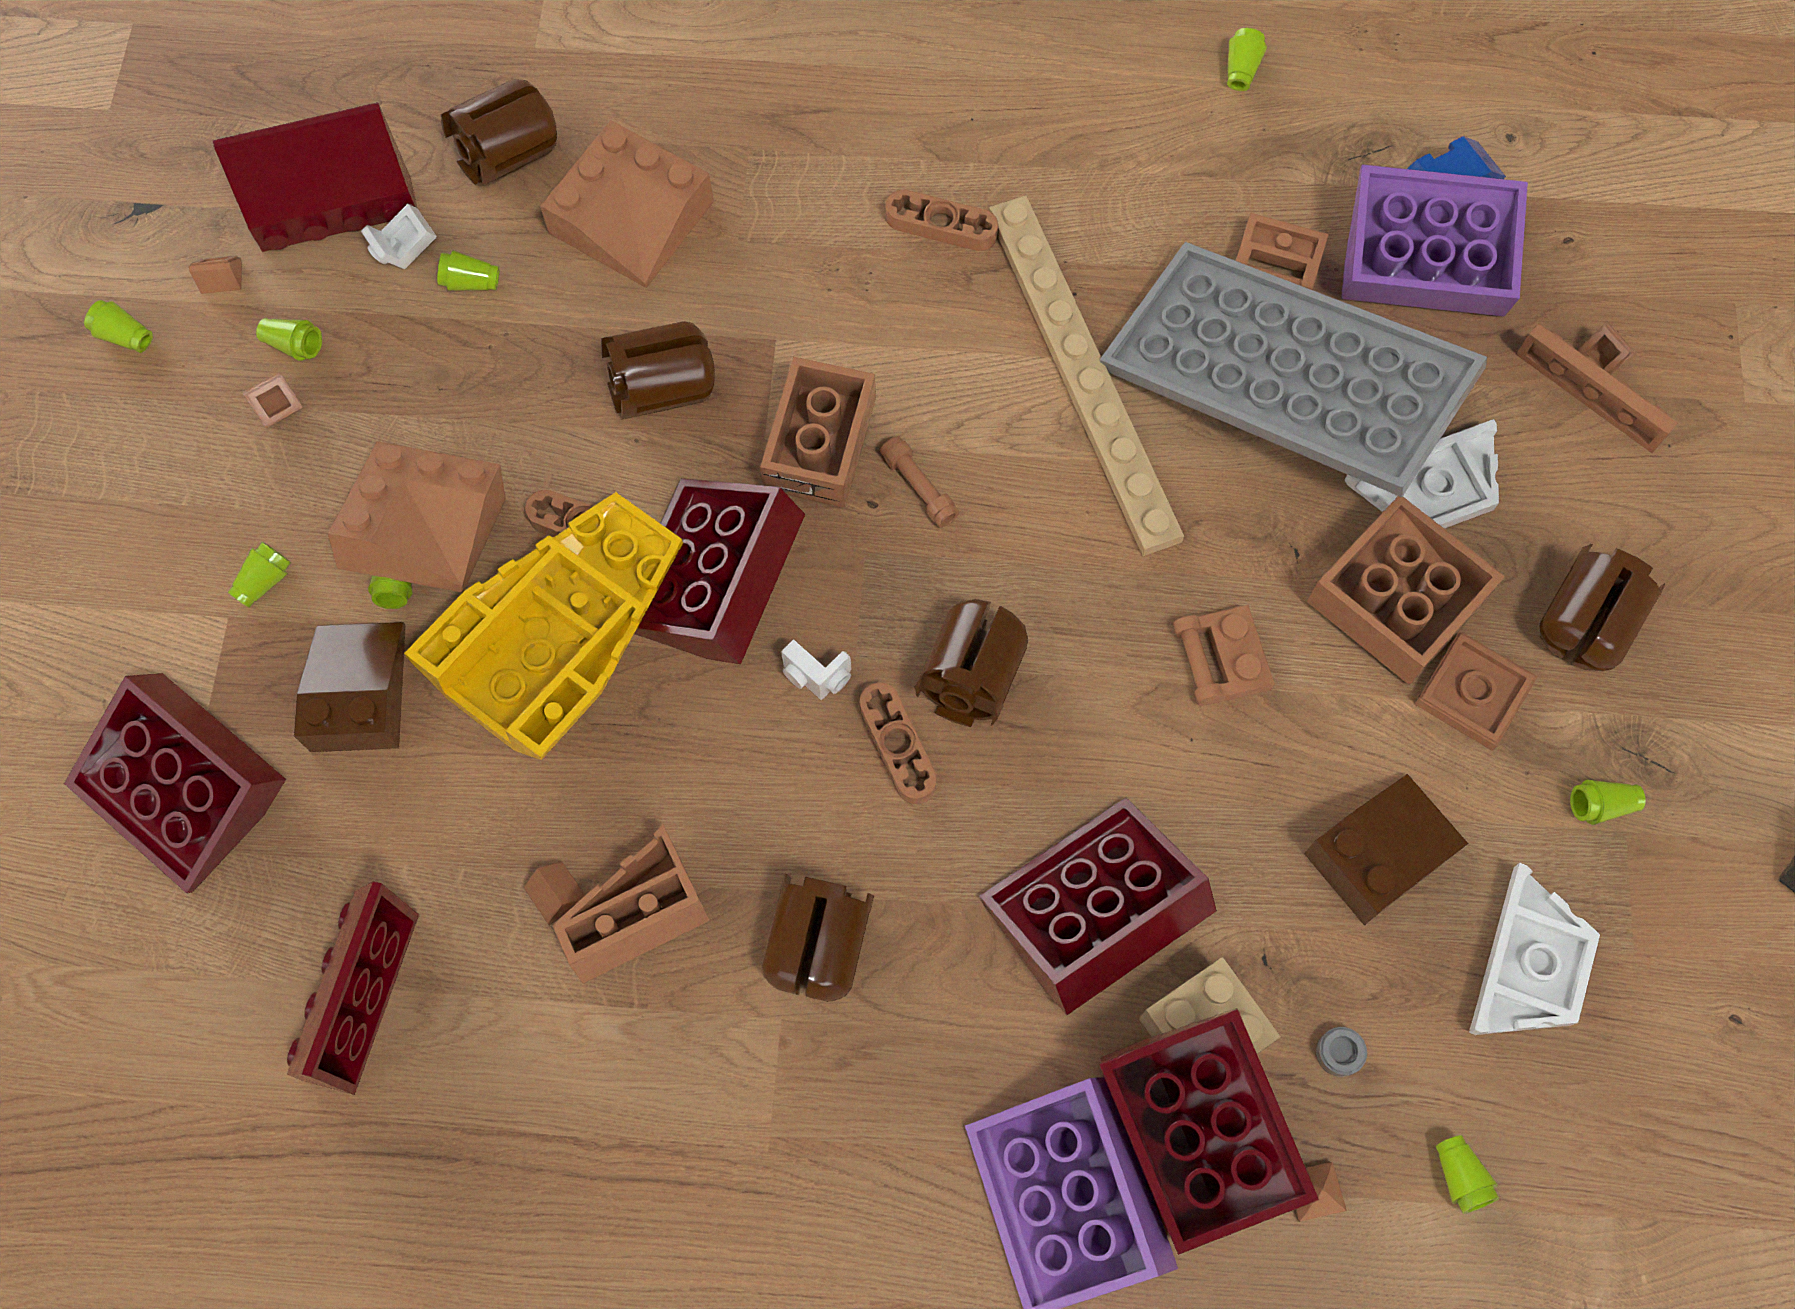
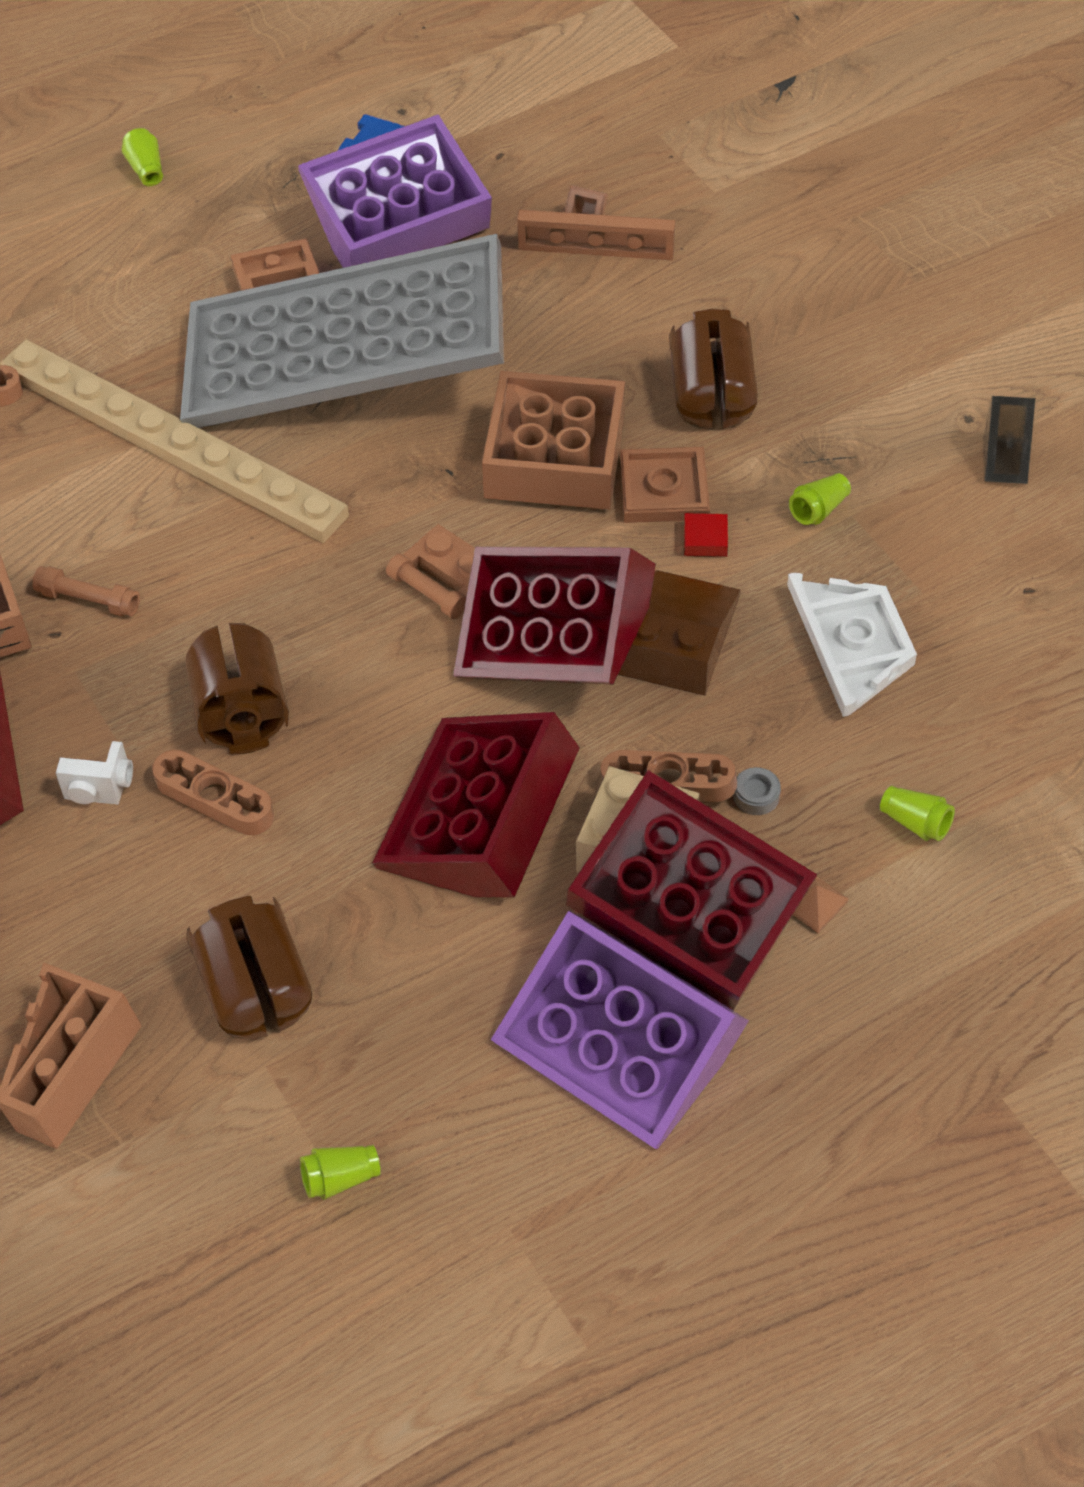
camera: 35 degrees left, 15 degrees down
(772, 1157) = (337, 1169): none -> lime cone
(1275, 777) = (552, 613): none -> dark red slope
(1308, 1004) = (703, 764): none -> nougat beam
(1453, 481) = (531, 345): white wing -> none
(1476, 767) = (705, 534): none -> red tile

